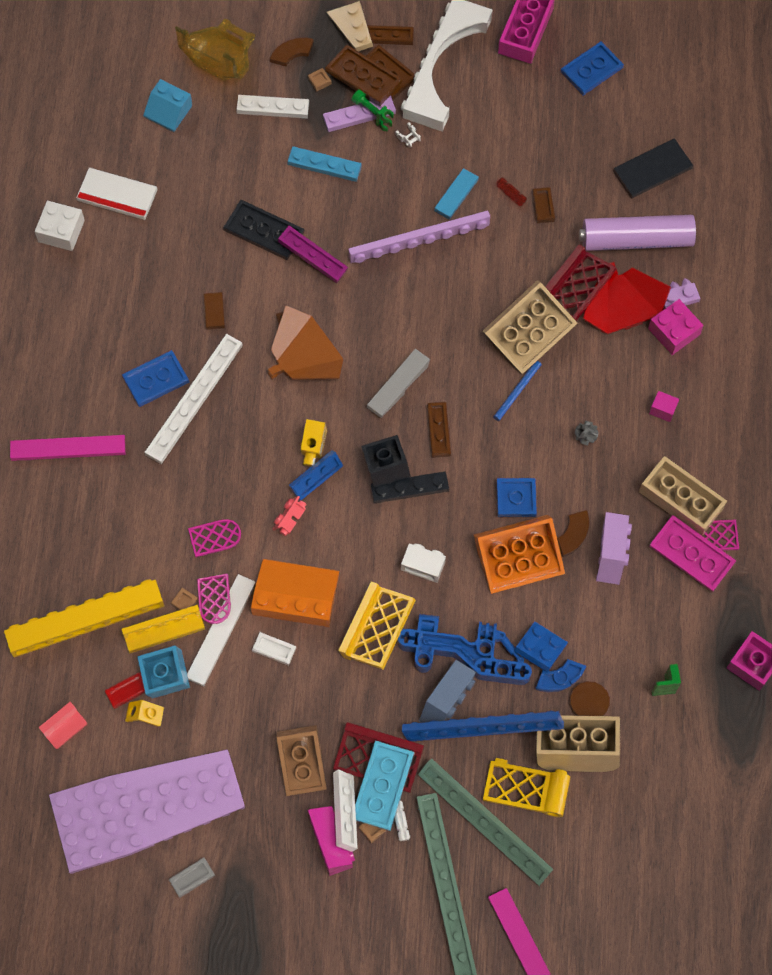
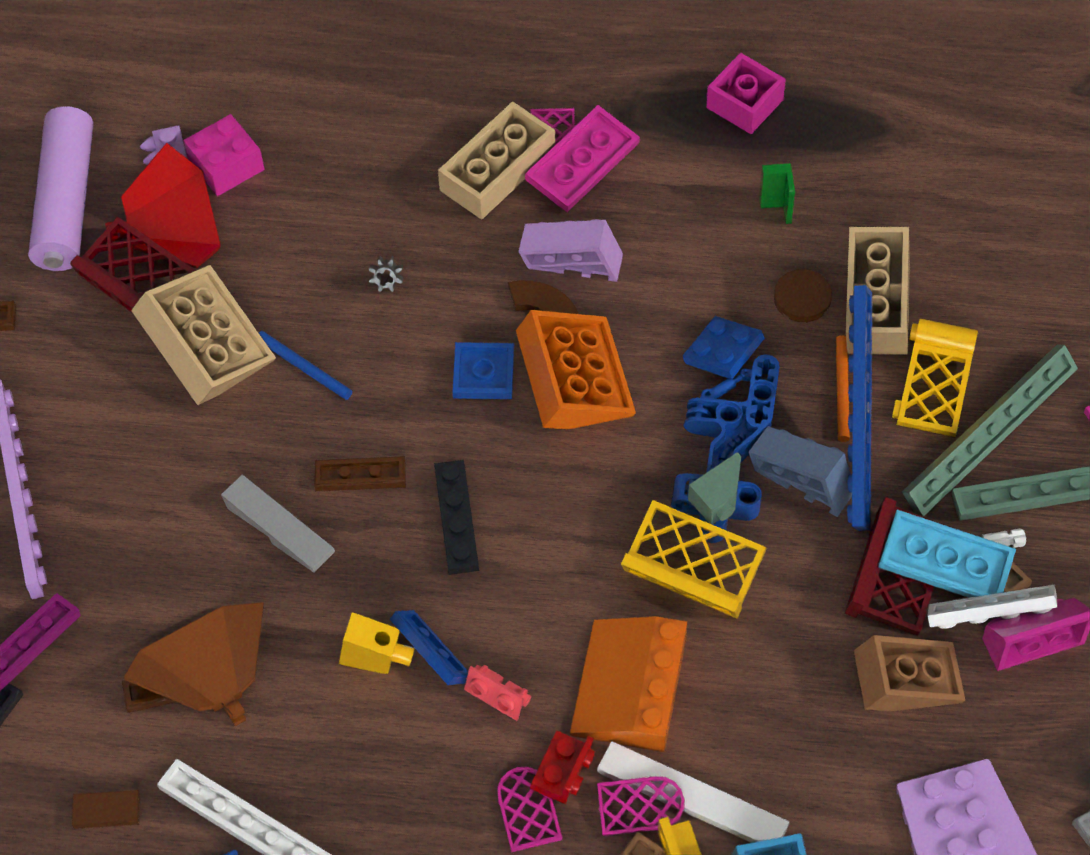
camera: 85 degrees left, 10 degrees down
(239, 554) = (561, 767): none -> red bracket
(274, 648) = (724, 717): white tile -> none
(386, 461) = (417, 538): black brick -> none
(420, 637) = (716, 490): none -> sand green slope
(423, 562) = (586, 497): white brick -> none
(562, 678) = (763, 317): blue tile -> none
(664, 406) = (350, 177): dark pink panel -> none

